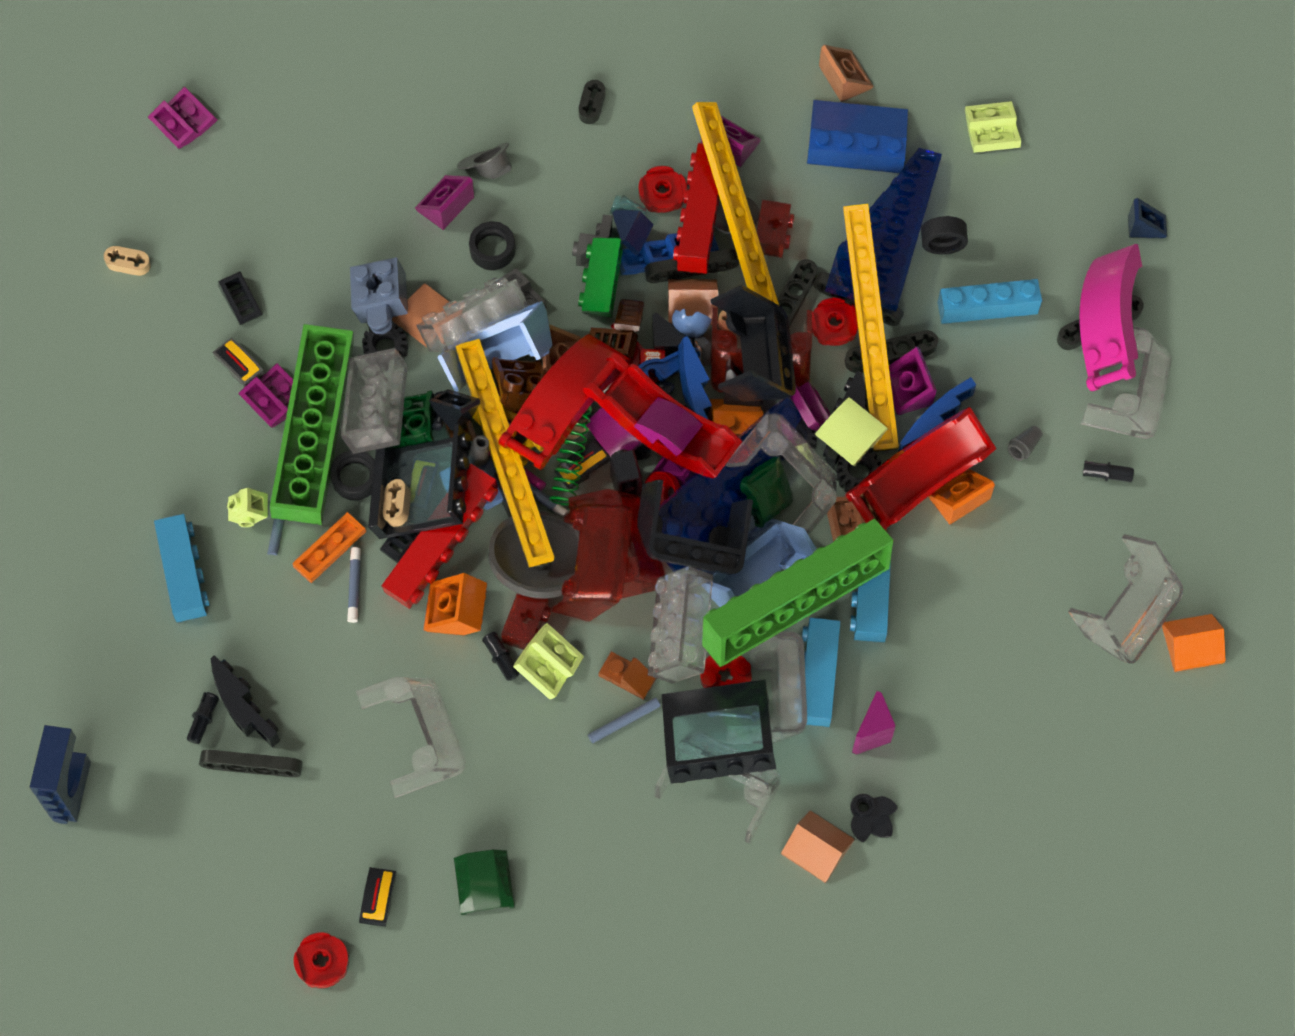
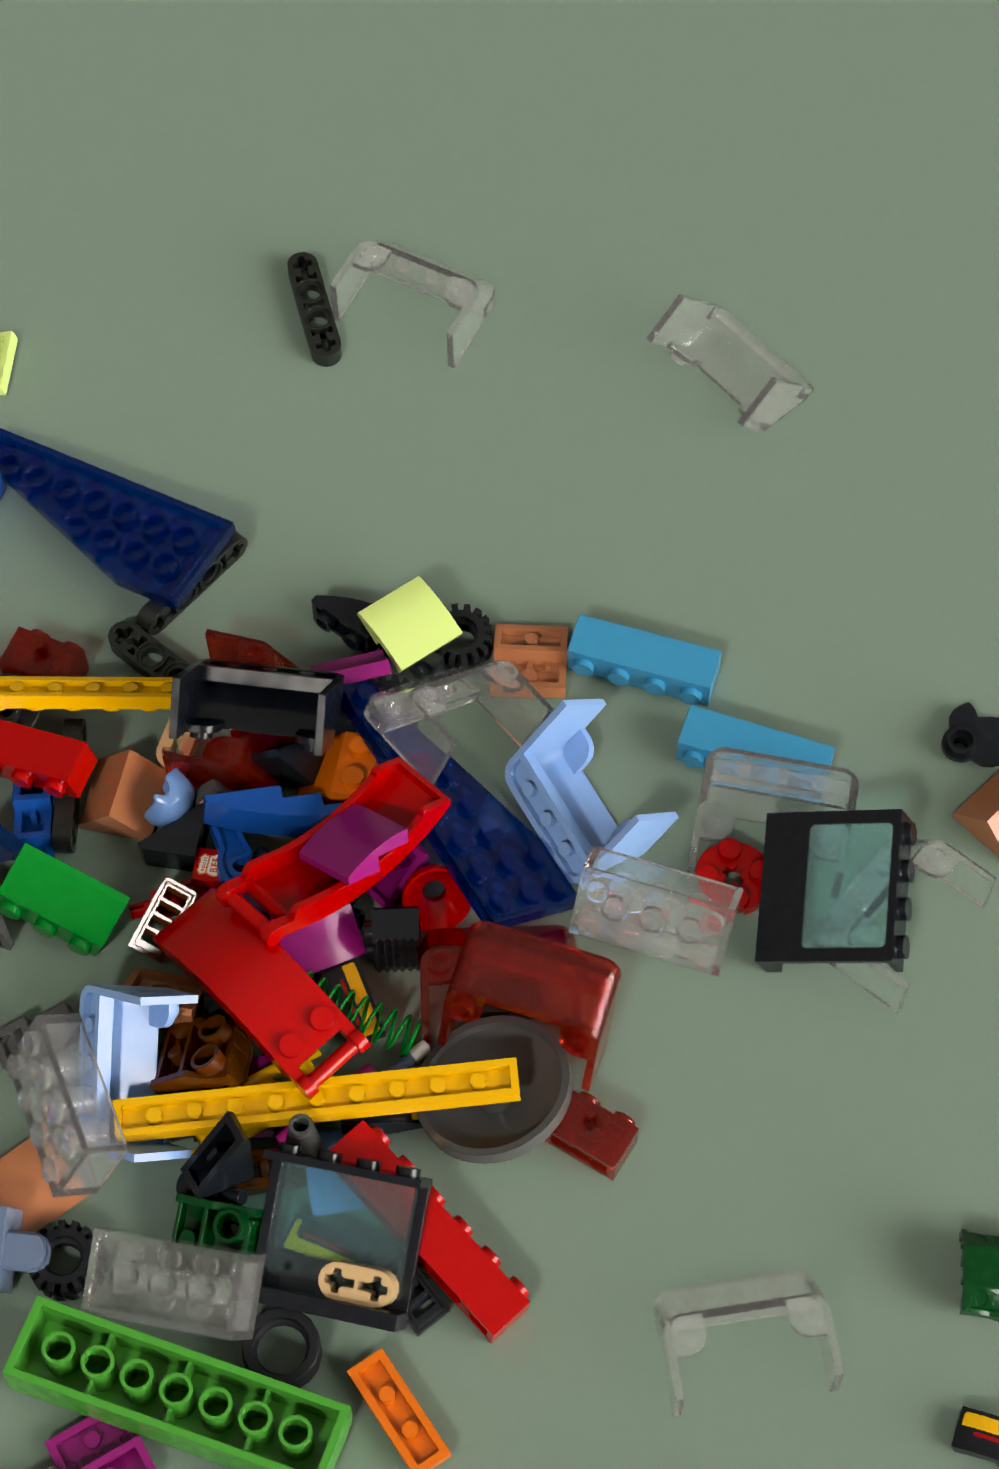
camera: 75 degrees left, 5 degrees down
(354, 579) = (469, 1387): sand blue bar -> none
(455, 605) = (545, 1234): orange slope -> none
(500, 656) = (640, 1183): black axle -> none
(548, 661) = (667, 1112): yellowish green slope -> none
(623, 720) = (774, 1030): sand blue bar -> none
(627, 675) = (704, 1011): dark orange slope -> none
(629, 315) = (135, 879): reddish brown slope -> none
(724, 546) = (548, 819): black windscreen -> none
(768, 490) = (481, 757): dark green slope -> none
(796, 592) = (659, 734): bright green brick -> none
(834, 335) = (206, 606): red plate -> none
(870, 322) = (235, 555): yellow plate -> none
(876, 727) = (852, 696): magenta slope -> none
(892, 353) = (281, 561): pearl dark grey beam -> none
(911, 383) = (343, 544): magenta slope -> none
(922, 468) = (483, 558): red windscreen -> none
(940, 411) = (407, 531): blue slope -> none
(944, 235) = (132, 448): black tyre -> none
(962, 495) = (527, 522): orange slope -> none
(989, 301) = (247, 423): dark azure brick -> none
(1023, 444) = (470, 433): dark grey cone -> none
(1107, 316) = (319, 282): dark pink windscreen -> none
(1108, 471) = (535, 350): black axle -> none
(1146, 221) = (182, 224): dark blue slope -> none
(1195, 642) = (794, 312): orange slope -> none

